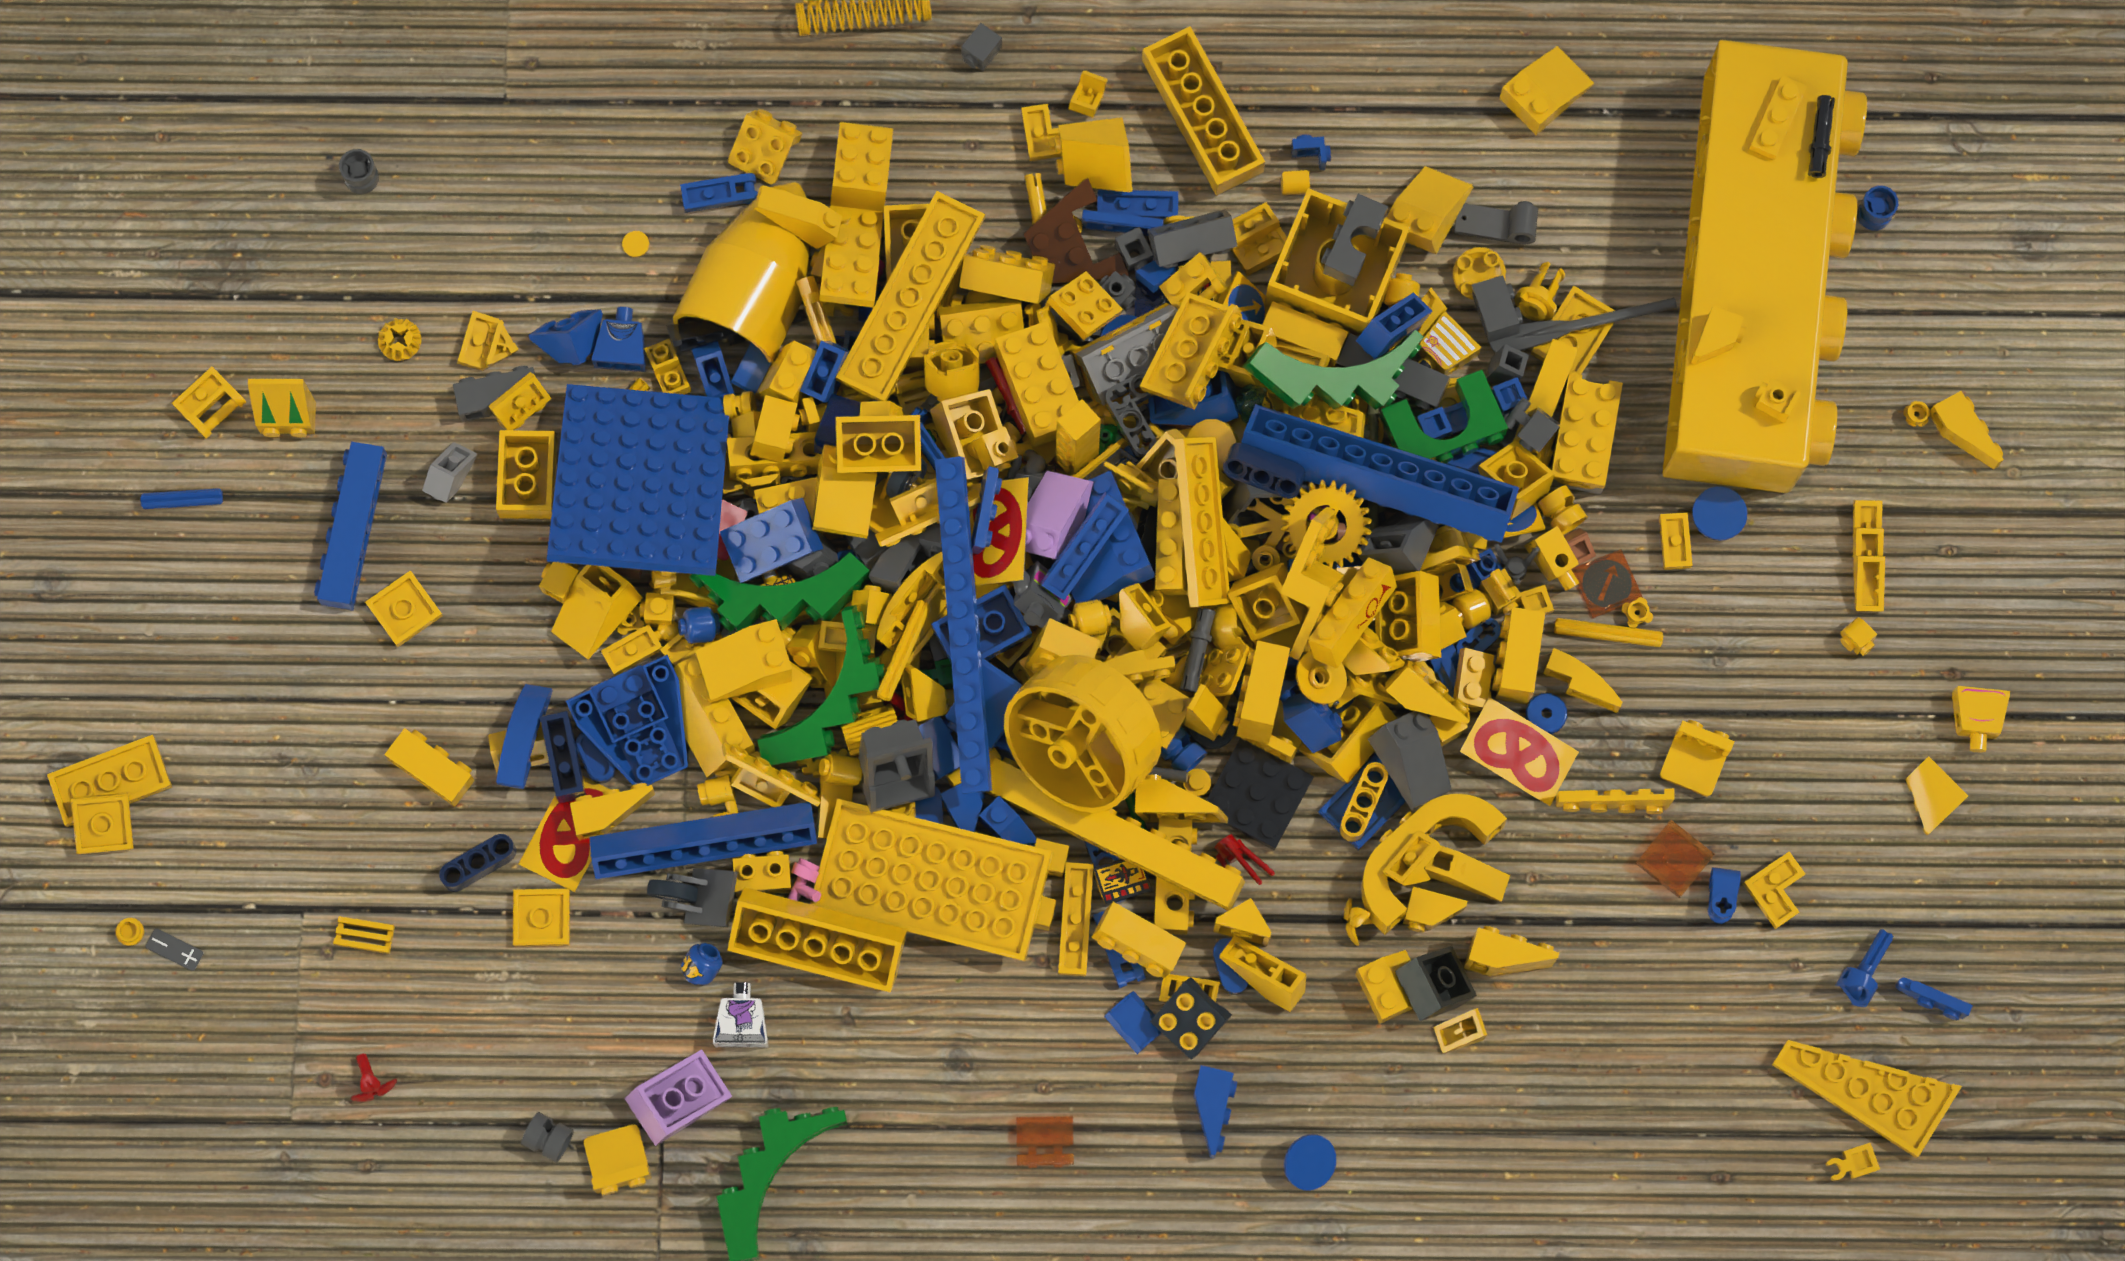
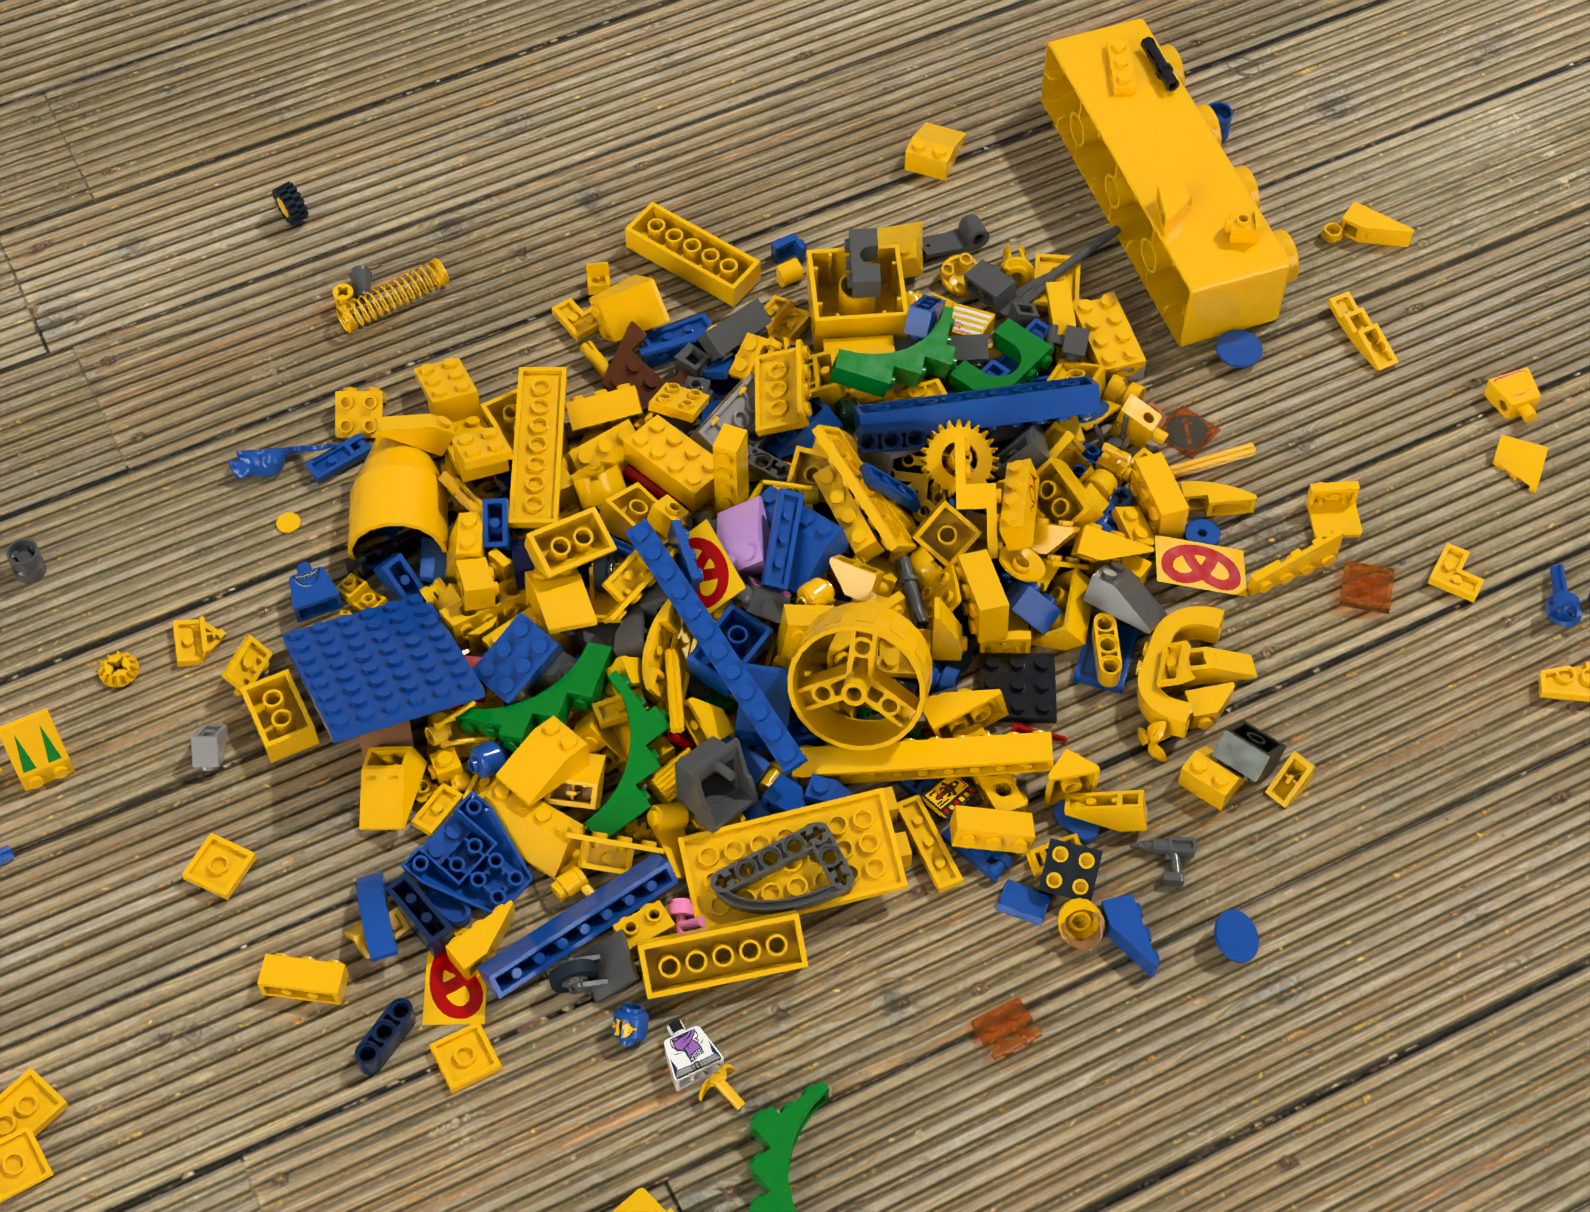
camera: 25 degrees left, 20 degrees down
(340, 930) = (306, 1137): yellow tile -> none
(351, 525) = (141, 823): blue brick -> none
(476, 395) = (205, 679): dark grey slope -> none
(558, 579) = (346, 782): yellow brick -> none
(569, 338) = (267, 605): blue slope -> none
(646, 160) = (267, 461): none -> blue animal
(677, 1097) = (666, 1146): lavender slope -> none
(753, 1059) = (717, 1080): none -> yellow plant
(923, 874) = (785, 858): none -> dark grey beam
(981, 47) = (498, 283): dark grey brick -> none
(1168, 1078) = (1081, 923): none -> yellow piece
(1235, 526) = (890, 487): none -> blue tile
(1305, 1043) = (1173, 849): none -> dark grey piece
(1501, 955) = (1287, 706): yellow slope -> none
(1637, 605) = (1223, 433): yellow plate -> none
(1675, 541) = (1219, 380): yellow plate -> none
(1723, 889) = (1419, 594): blue piece -> none
(1858, 637) = (1394, 383): yellow plate -> none

